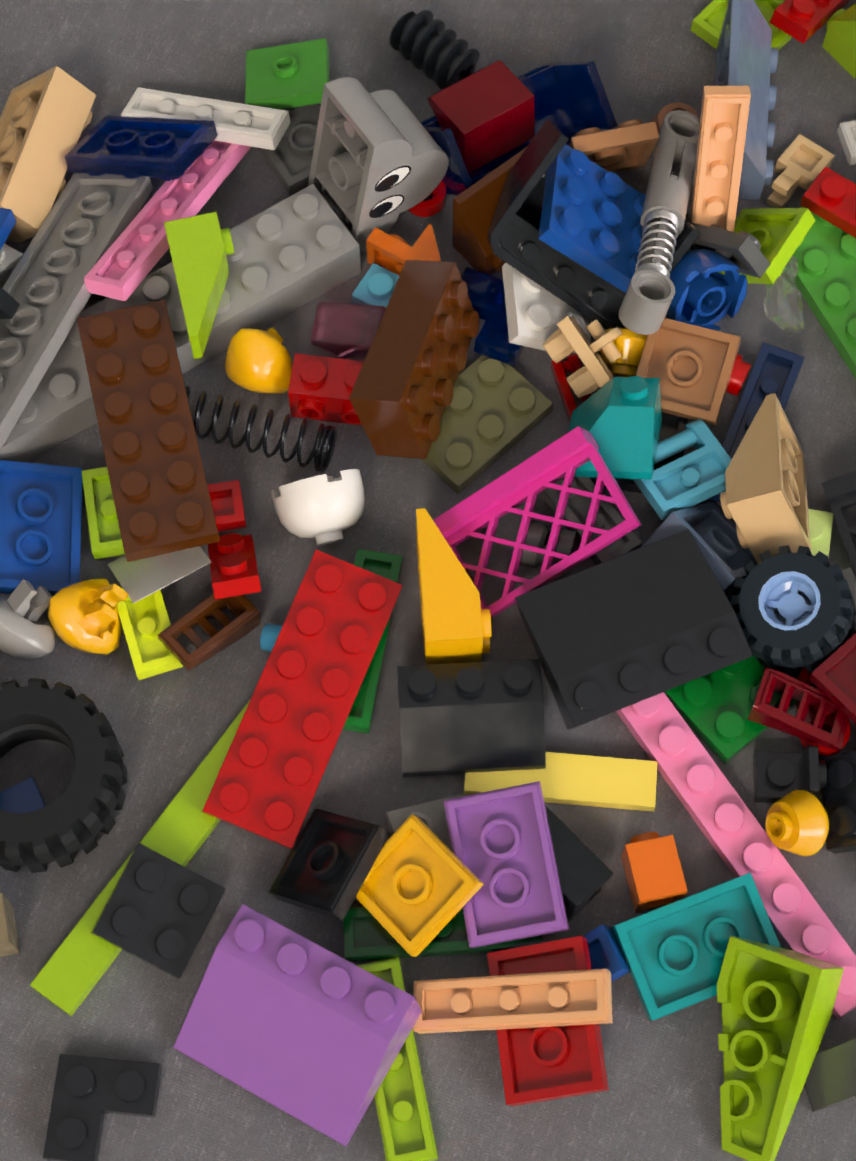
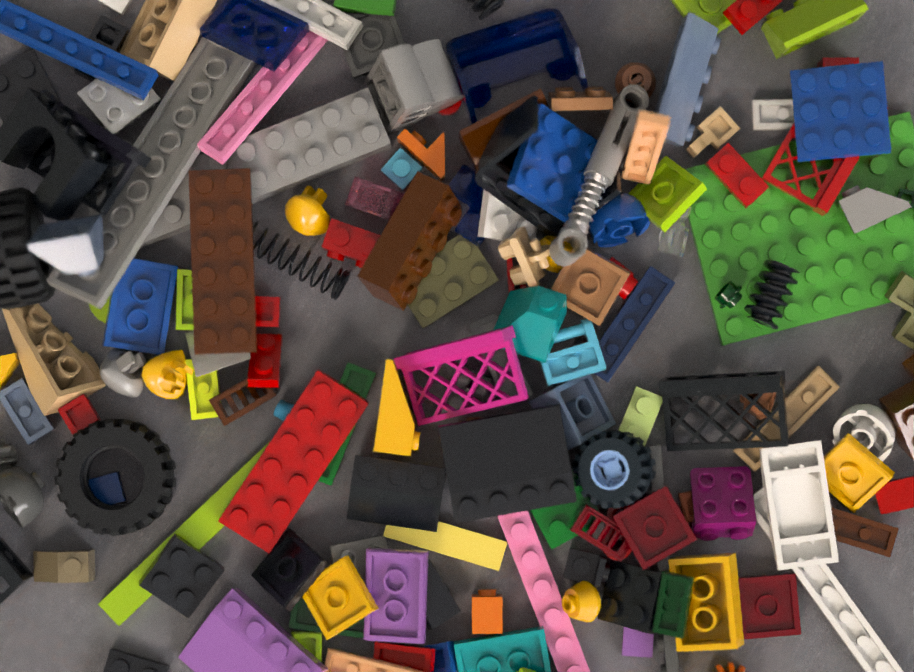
camera: 10 degrees right, 20 degrees up
(200, 270) = (276, 152): lime slope -> none
(321, 505) = (329, 327): white cylinder -> none
(486, 113) = (498, 52): dark red slope -> none
(738, 247) = (645, 205): dark grey plate -> none
(768, 485) = (623, 379): tan slope -> none

